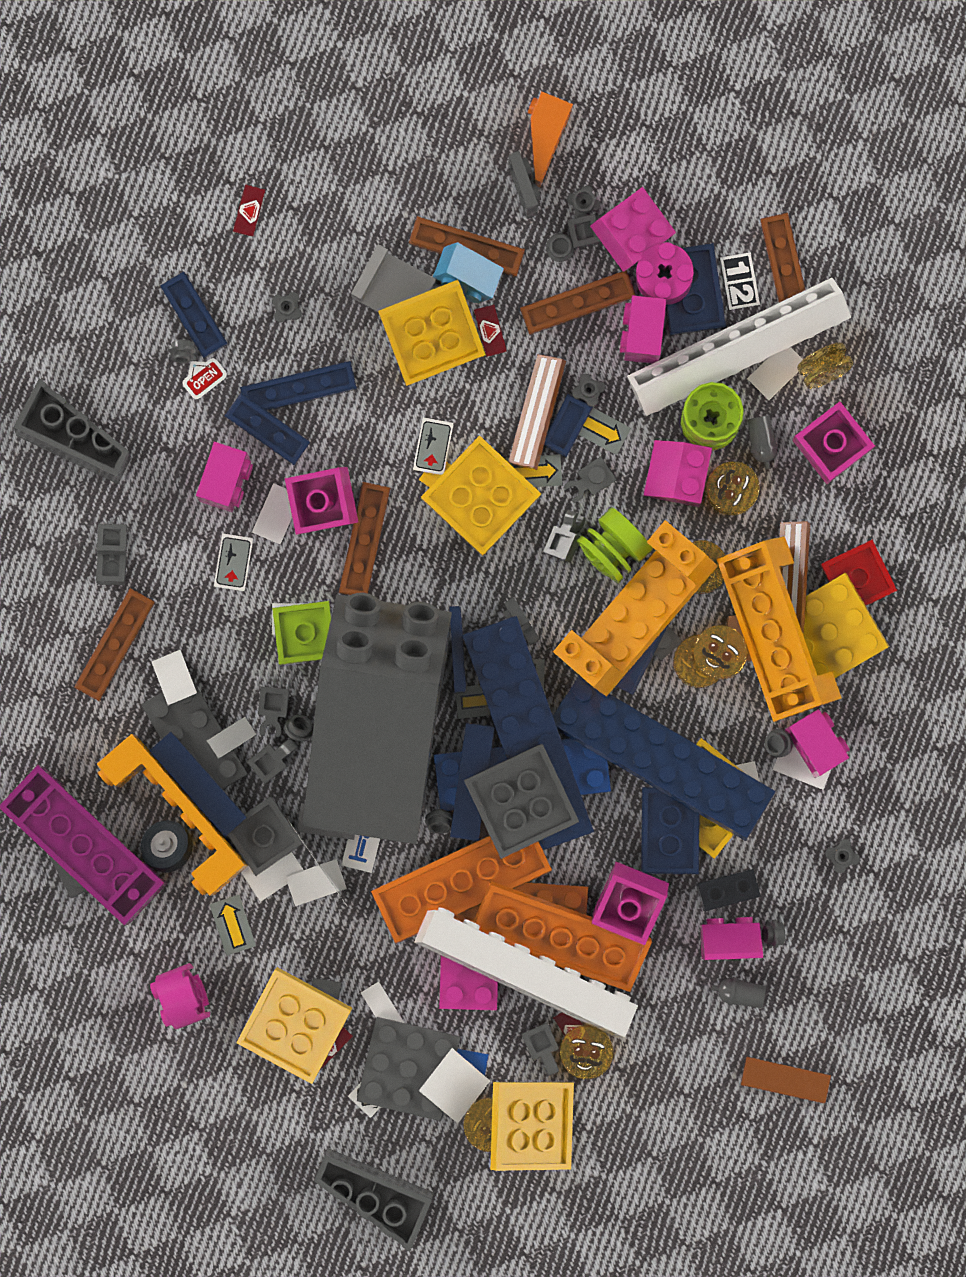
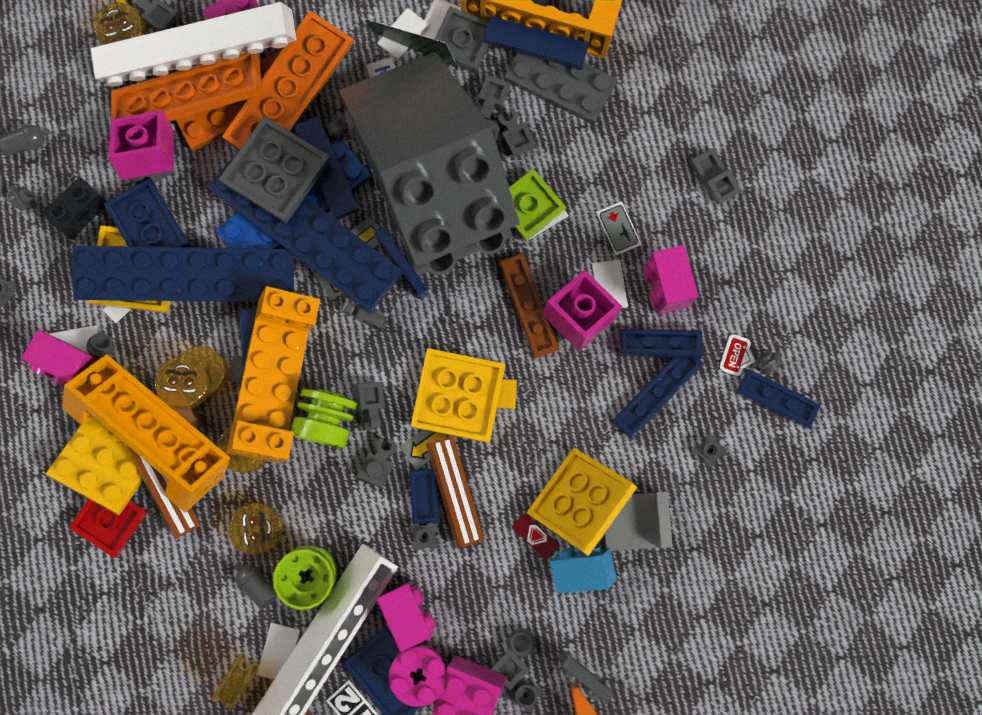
camera: 145 degrees right, 5 degrees down
(66, 432) = (817, 242): dark grey wedge -> none
(114, 644) = (666, 112): dark orange tile -> none
(174, 677) = (606, 112): white sticker -> none
(231, 737) = (533, 94): white sticker -> none
(249, 210) = (791, 512): dark red sticker -> none
(433, 446) = (522, 413): sticker -> none
(436, 236) = (629, 586): dark orange tile -> none
(577, 302) = (477, 605): dark orange tile -> none
(604, 431) = (391, 511): sticker -> none
(677, 472) = (308, 513): dark pink slope -> none
(731, 940) = (47, 167): dark pink slope -> none
(833, 442) = (190, 619): dark pink brick -> none

